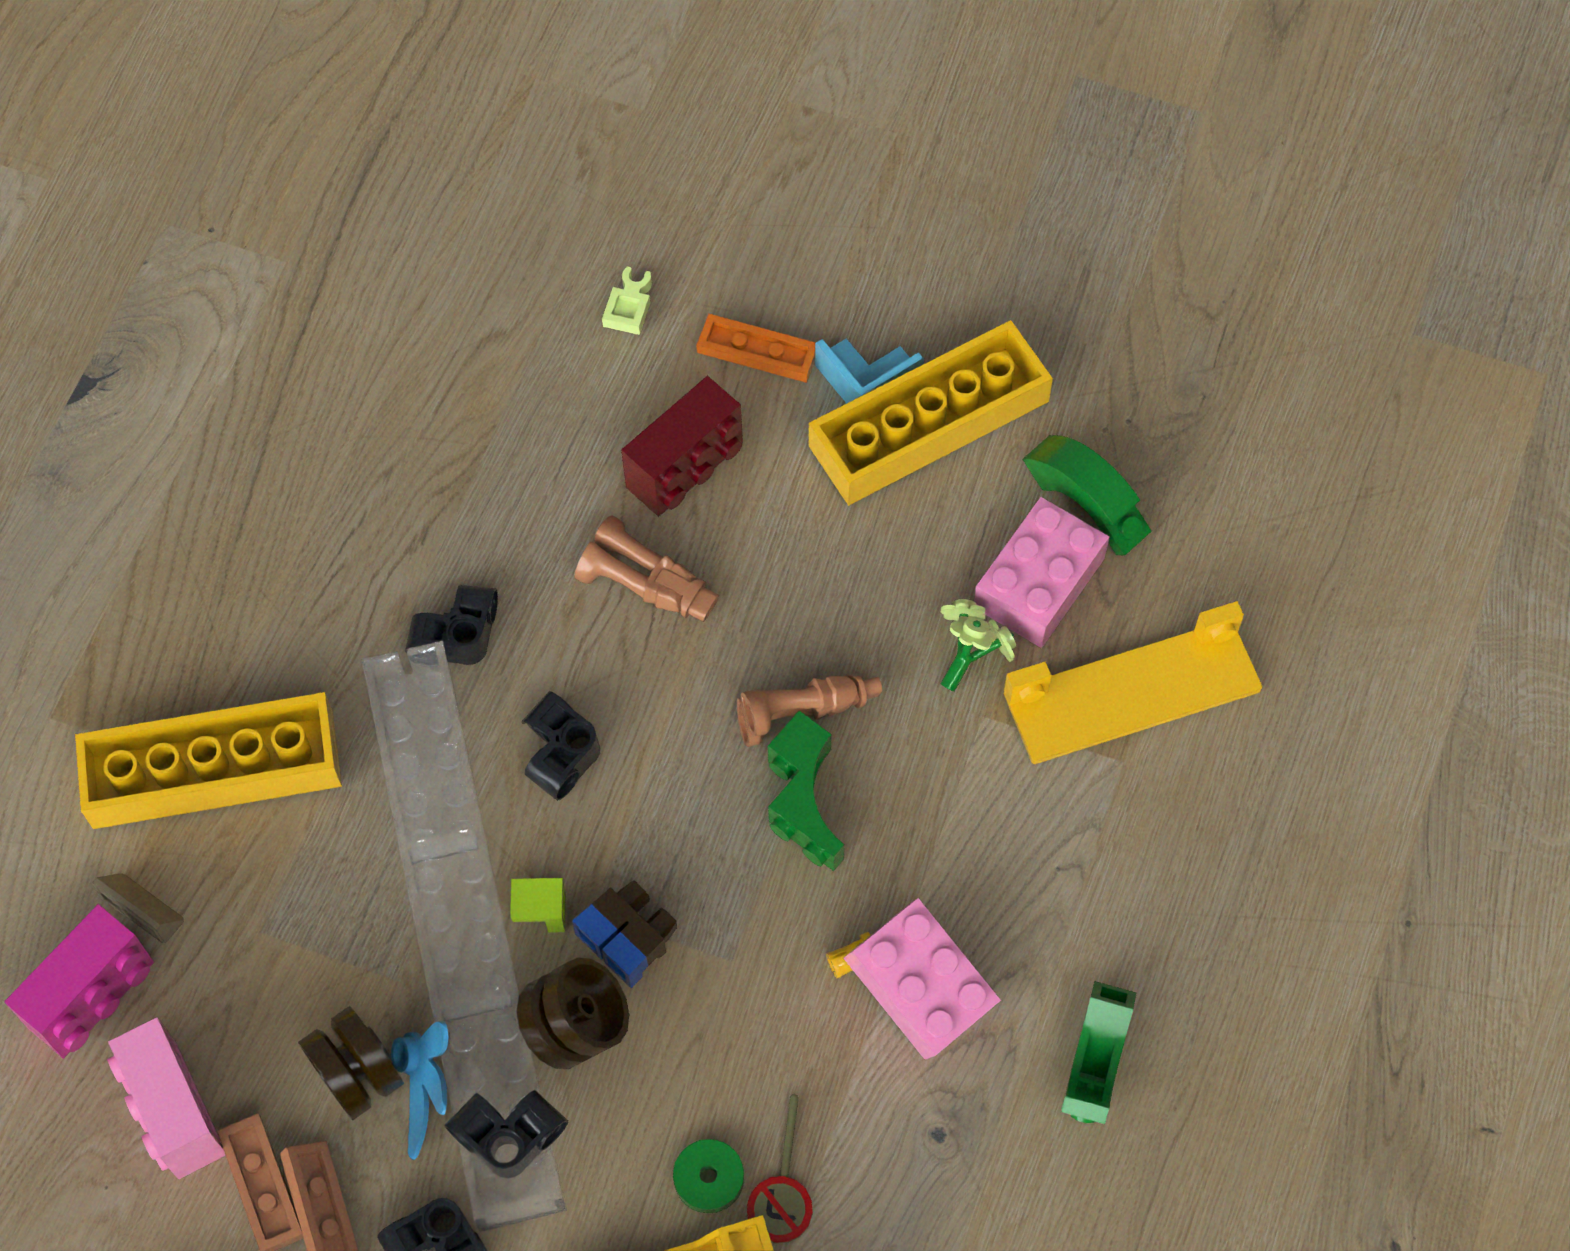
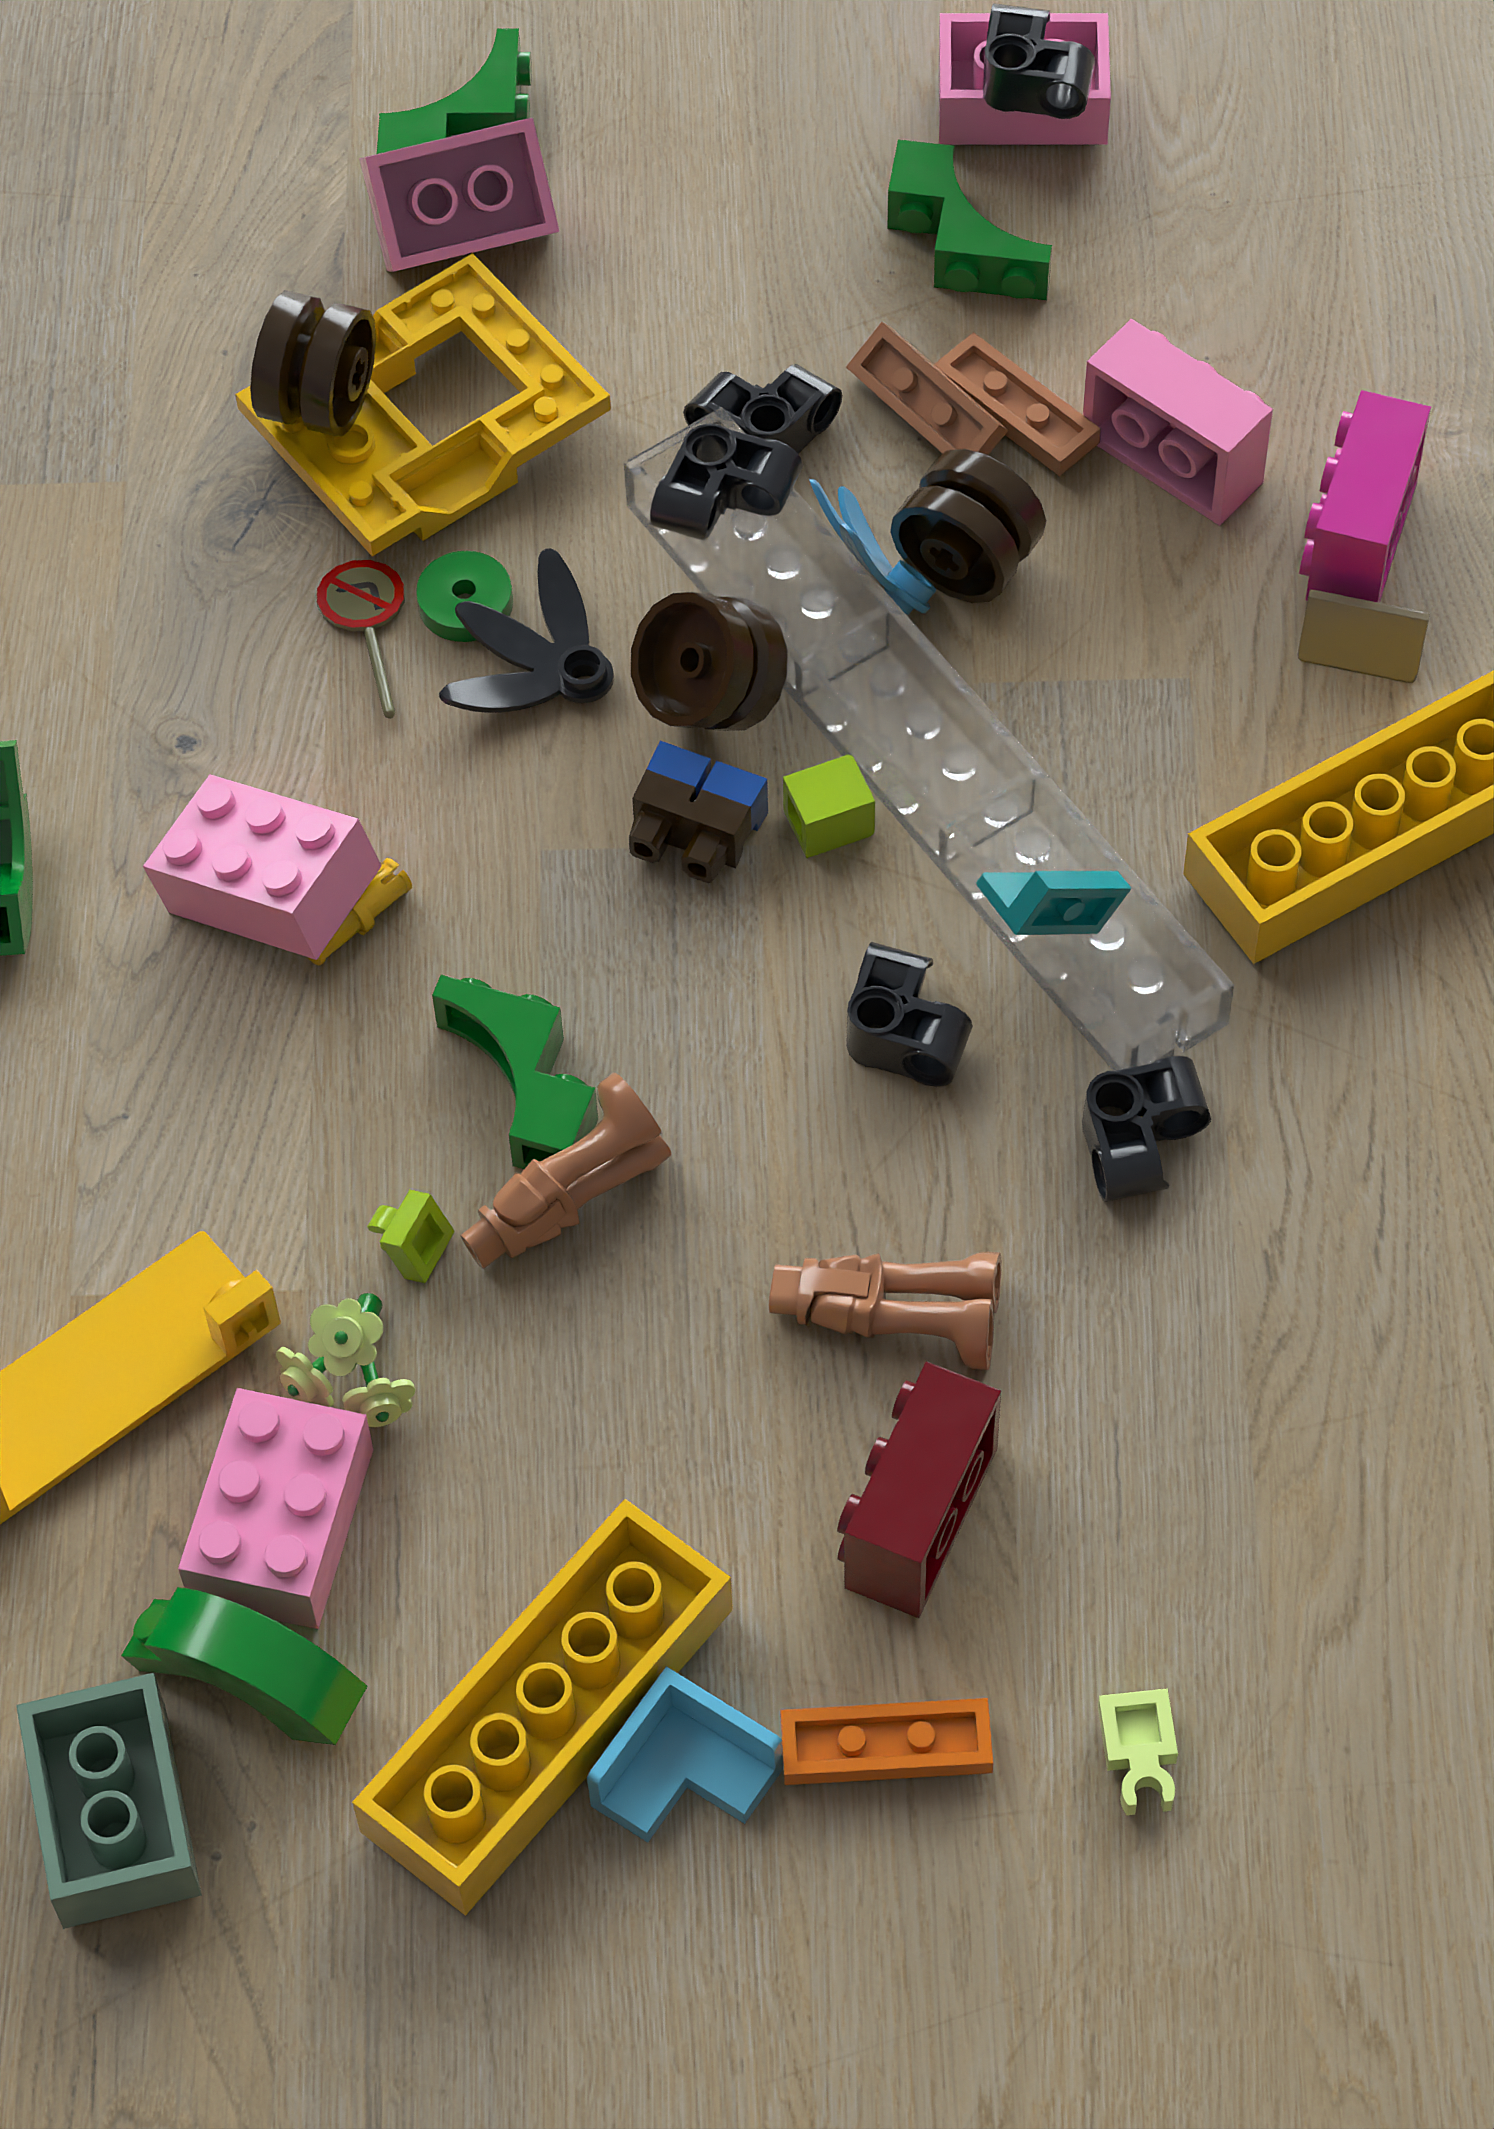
camera: 160 degrees right, 5 degrees down
(440, 750) = (1054, 900): none -> teal panel
(684, 1112) = (551, 665): none -> black plant
(909, 710) = (413, 1234): none -> lime tile
(1181, 442) = (108, 1801): none -> sand green brick

